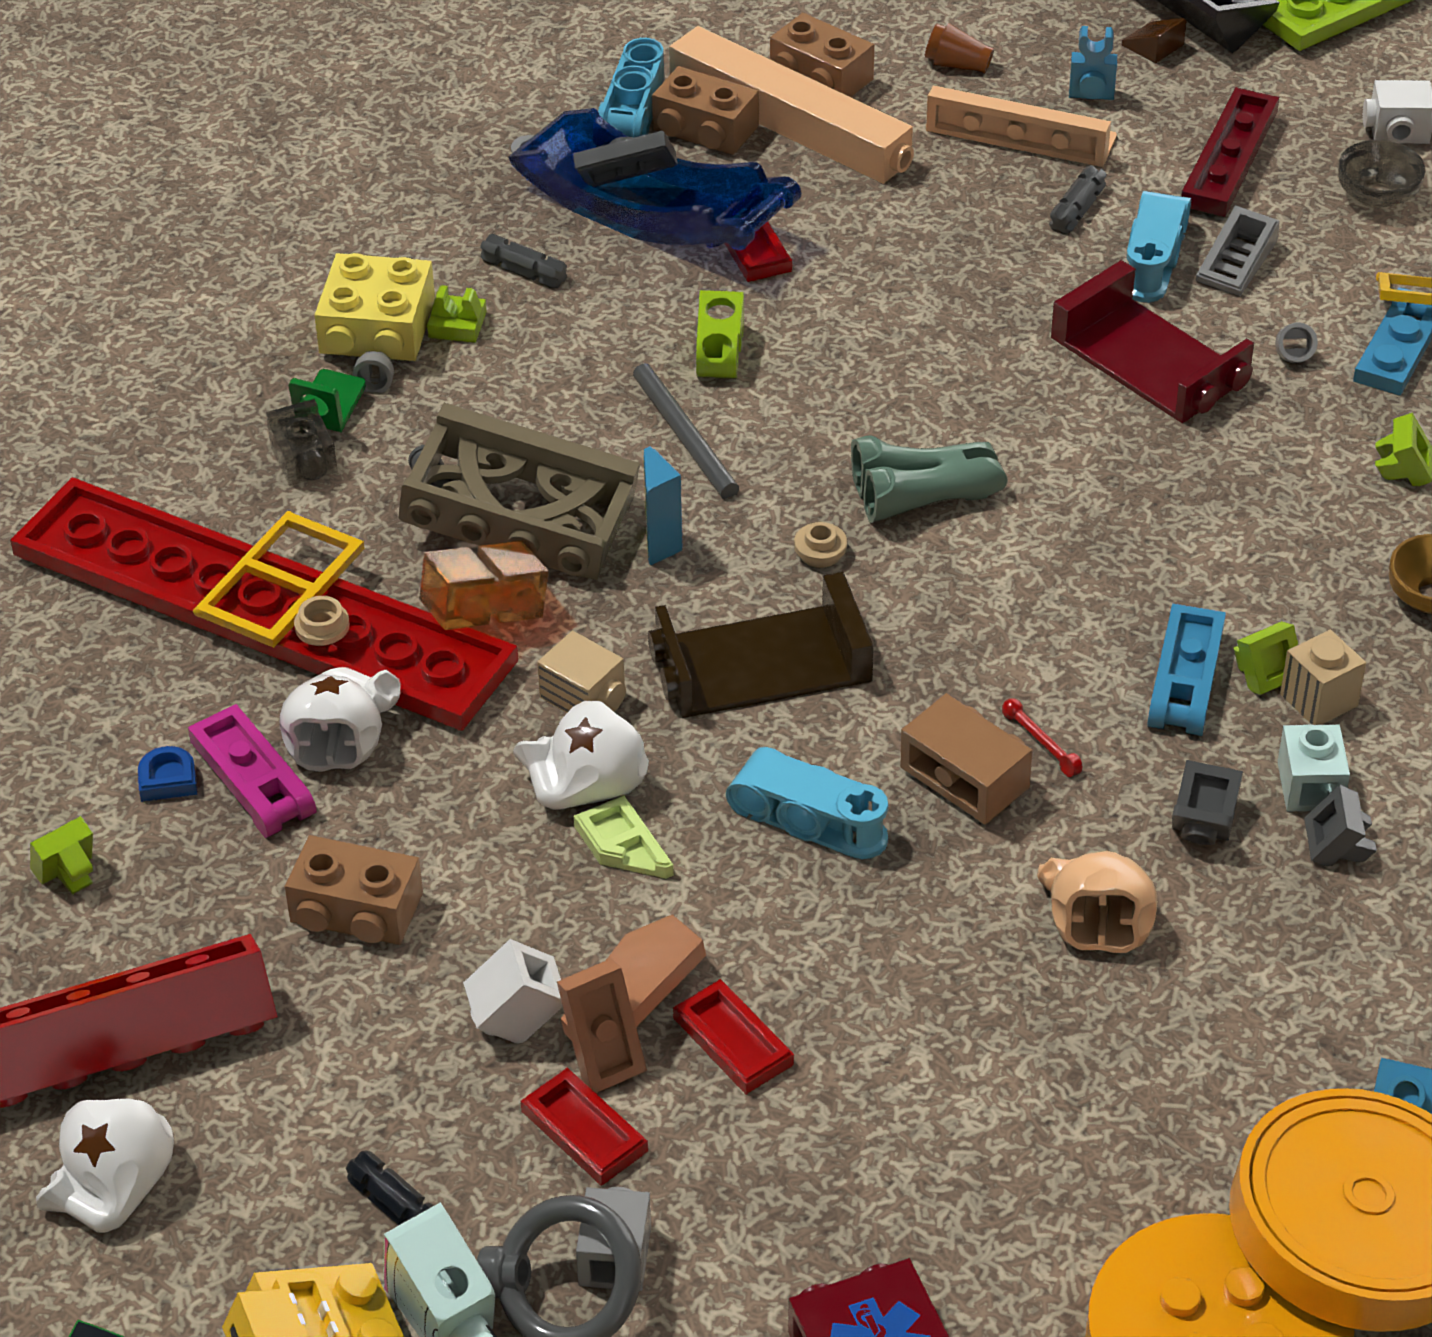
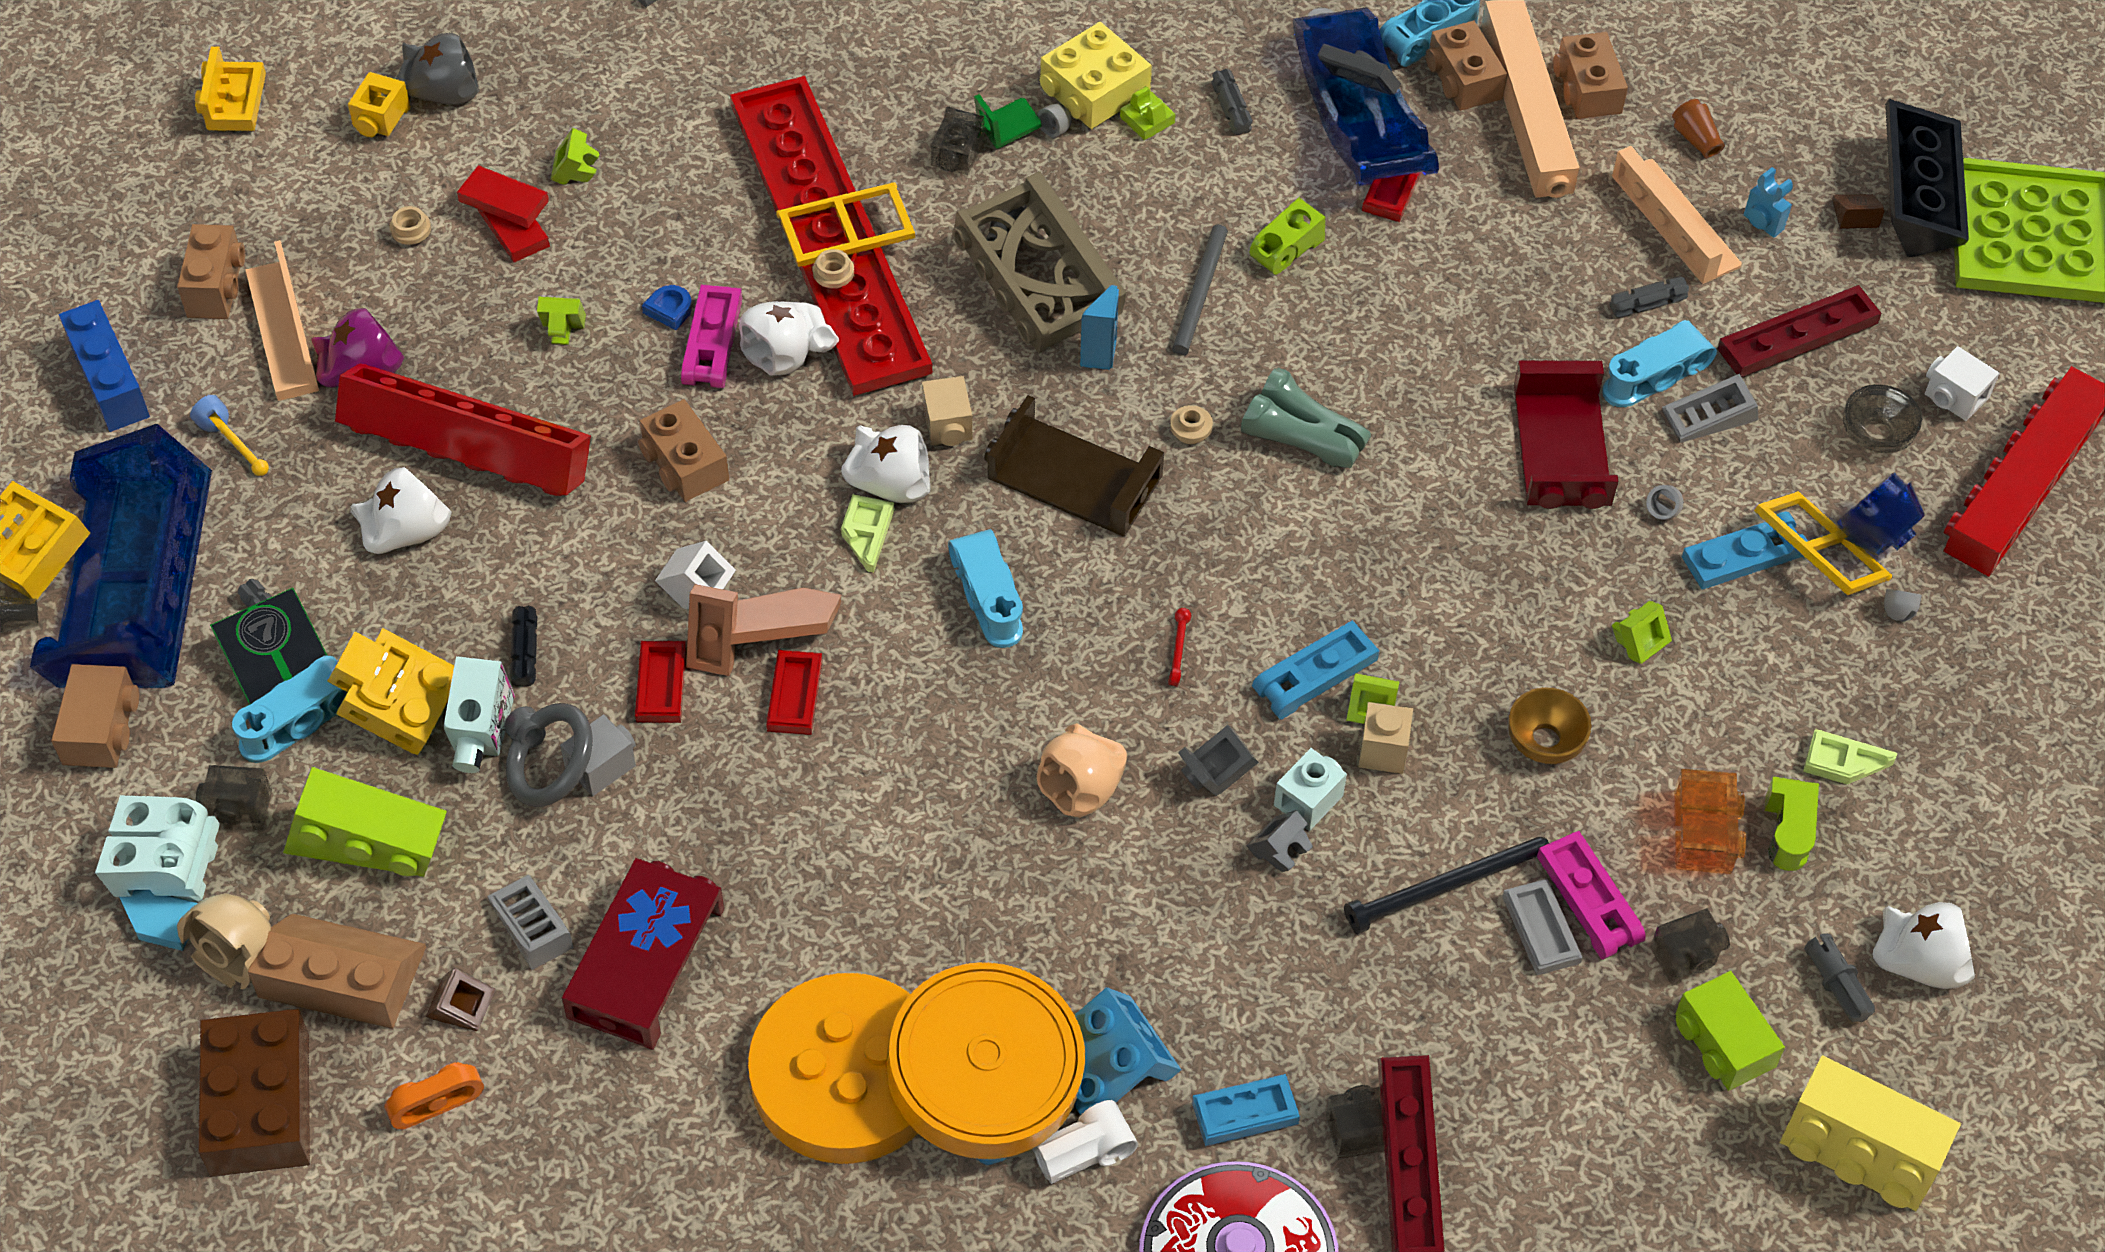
camera: 40 degrees right, 10 degrees up
(465, 593) = (928, 312): clear orange piece -> none
(966, 758) = (1105, 626): medium nougat brick -> none

